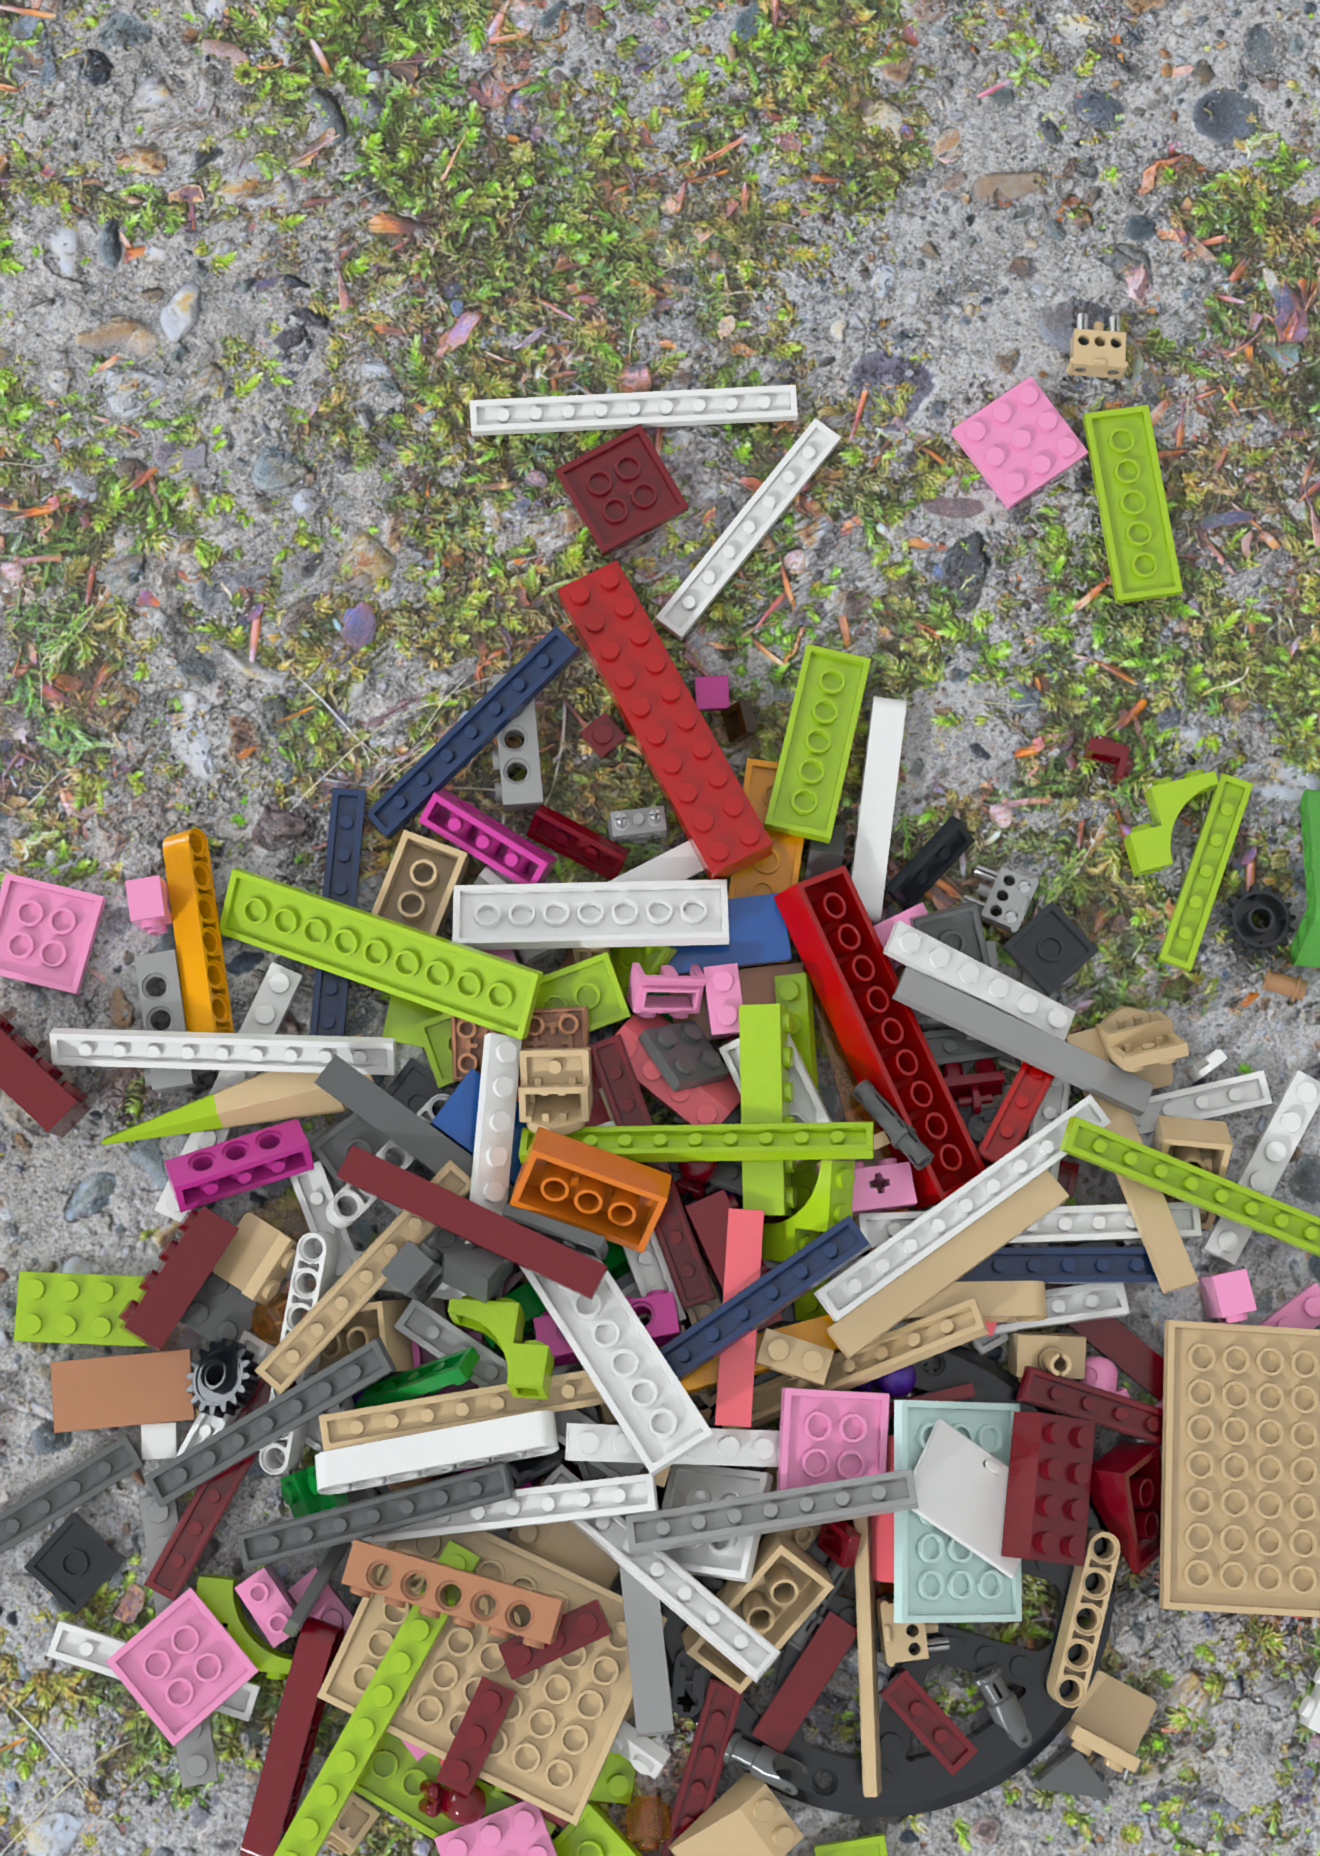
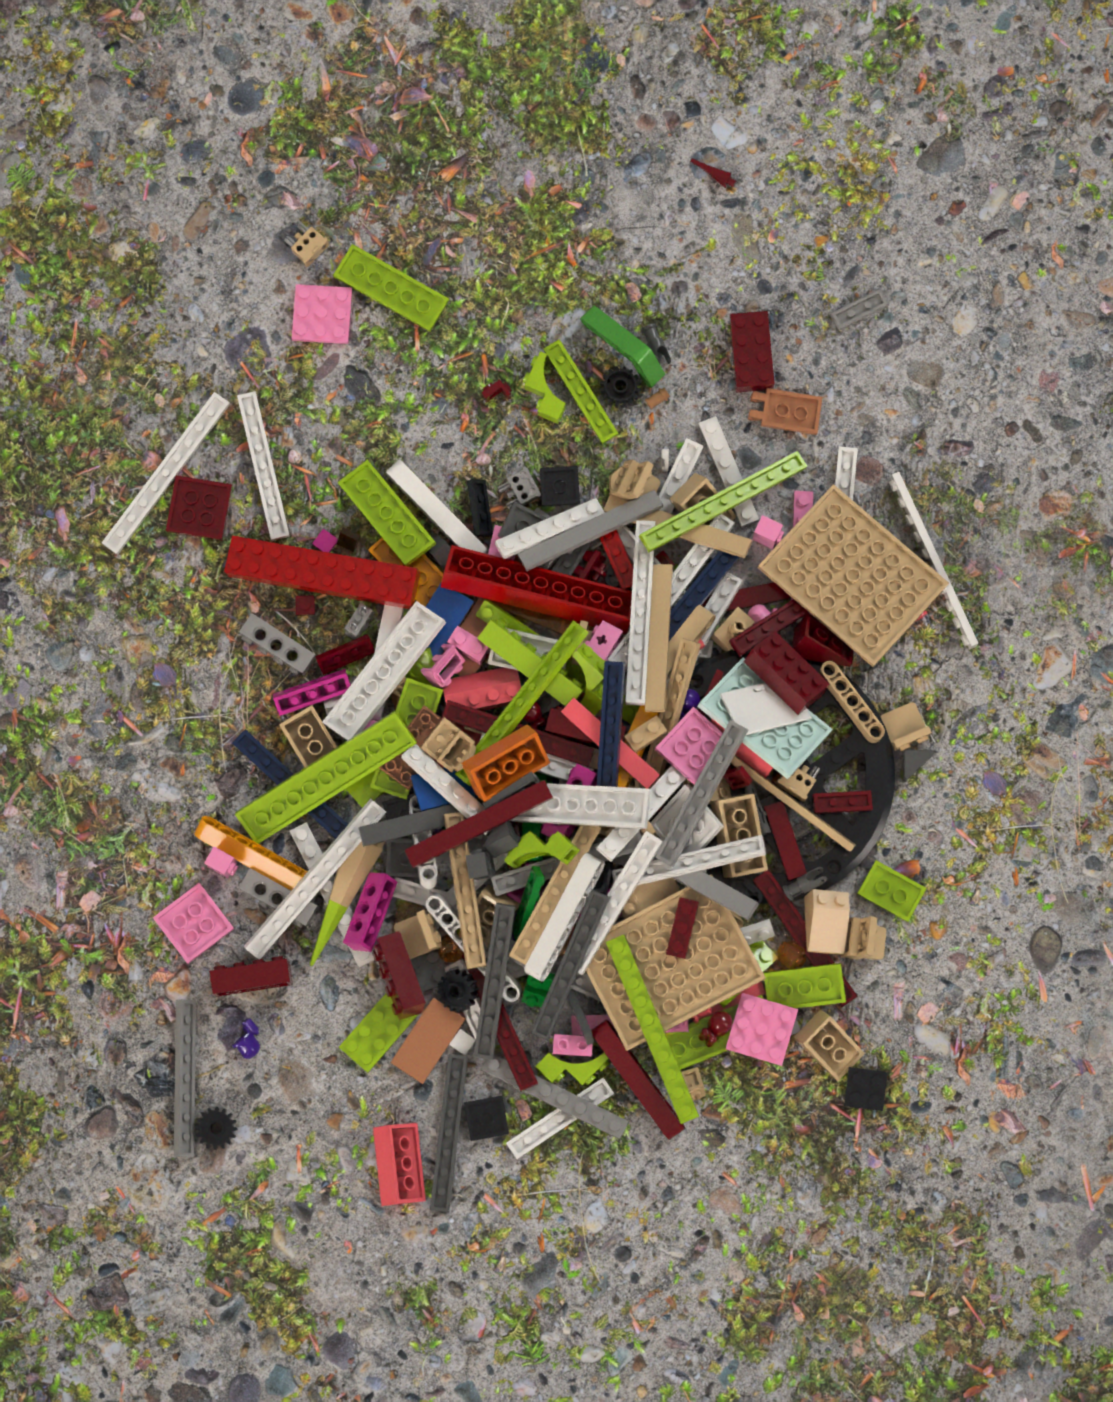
camera: 45 degrees left, 0 degrees up
(182, 1666) = (568, 1098): bright pink plate -> none
(473, 732) = (259, 660): dark blue plate -> none
(476, 1735) = (696, 992): dark red plate -> none
(544, 1608) = (673, 930): nougat brick -> none
(683, 1055) = (478, 680): dark grey plate -> none
(901, 1134) = (589, 614): dark grey pin -> none
(1003, 1704) = (861, 765): dark grey piece -> none

